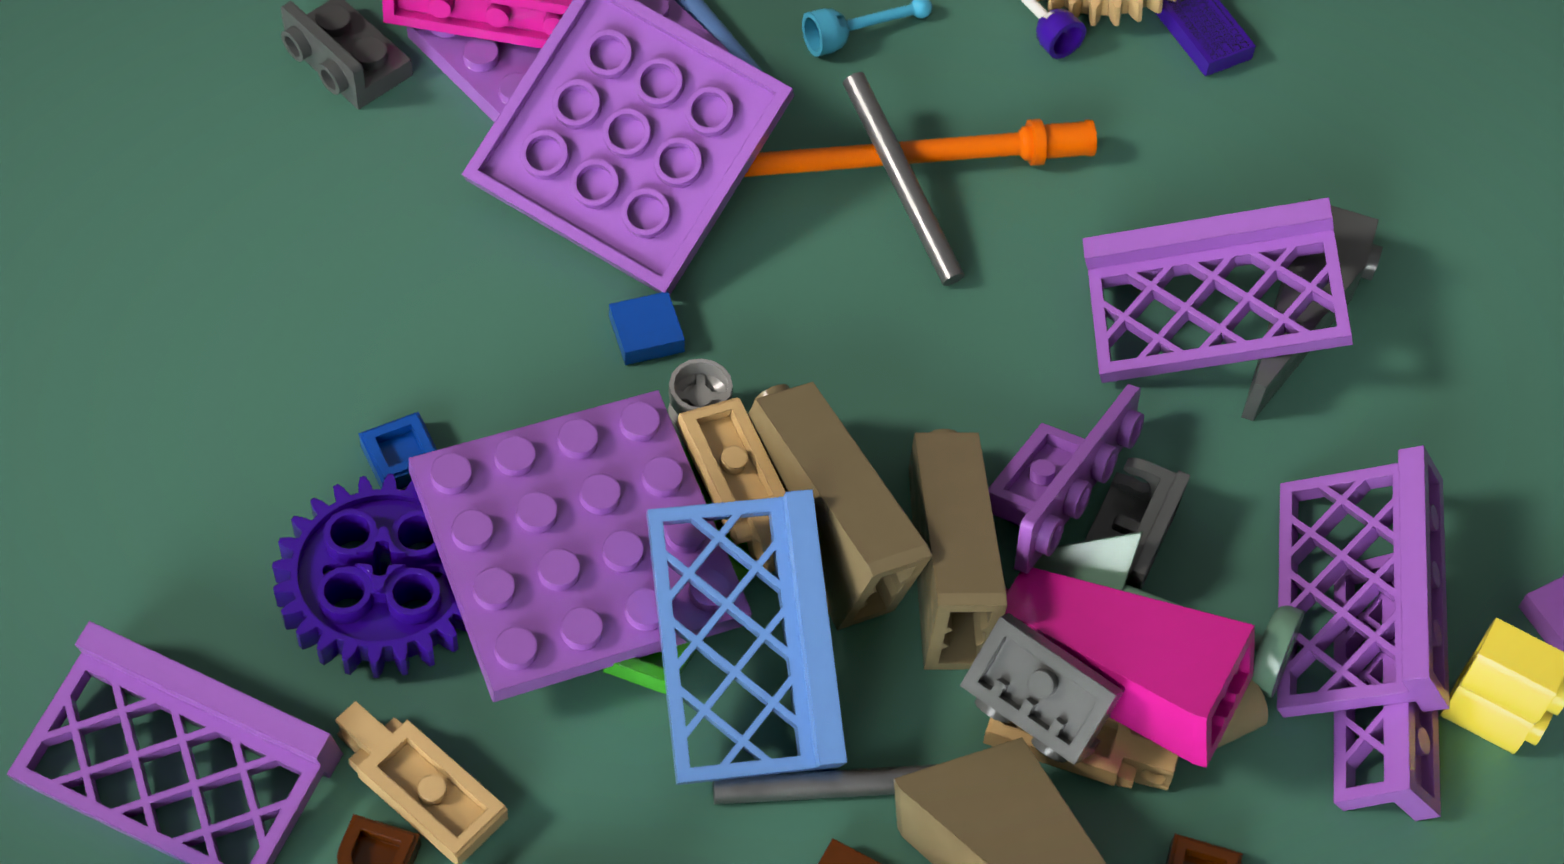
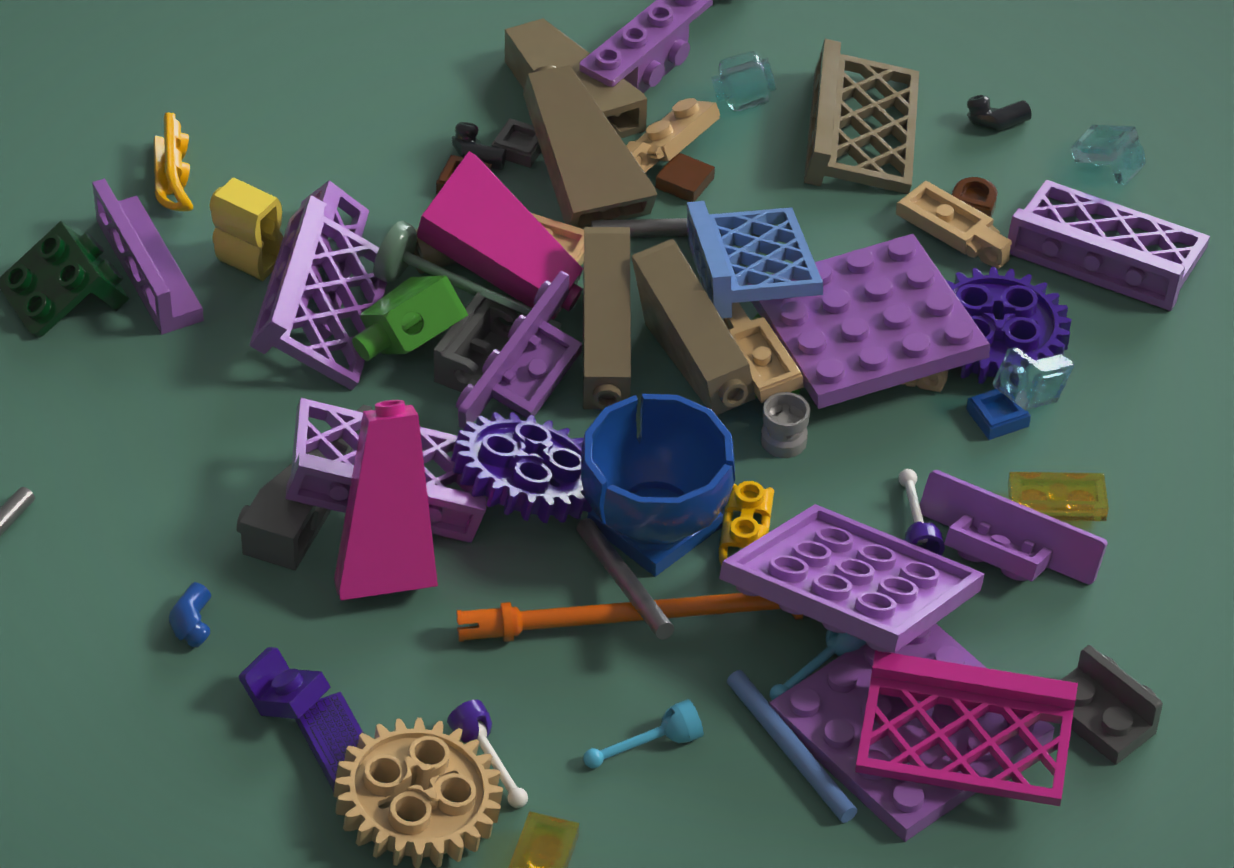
camera: 175 degrees left, 10 degrees down
(340, 454) = (1031, 381): none -> clear light blue bracket
(345, 307) = (1061, 494): none -> clear yellow plate
(431, 235) = (1009, 533): none -> medium lavender bracket
(530, 249) = (919, 531): none -> hinge
(646, 328) = (827, 488): blue tile -> none
(755, 257) = (748, 499): none -> yellow piece
(866, 240) = (661, 489): none -> blue plate
(1041, 690) = (559, 211): bracket -> none
(1073, 278) = (522, 466): none -> dark purple gear
(1196, 186) = (387, 515): none -> dark pink slope
(1234, 541) = (409, 317): none -> bright green torso
(1269, 58) = (281, 690): none -> dark purple bracket
(1407, 154) = (186, 616): none -> blue arm

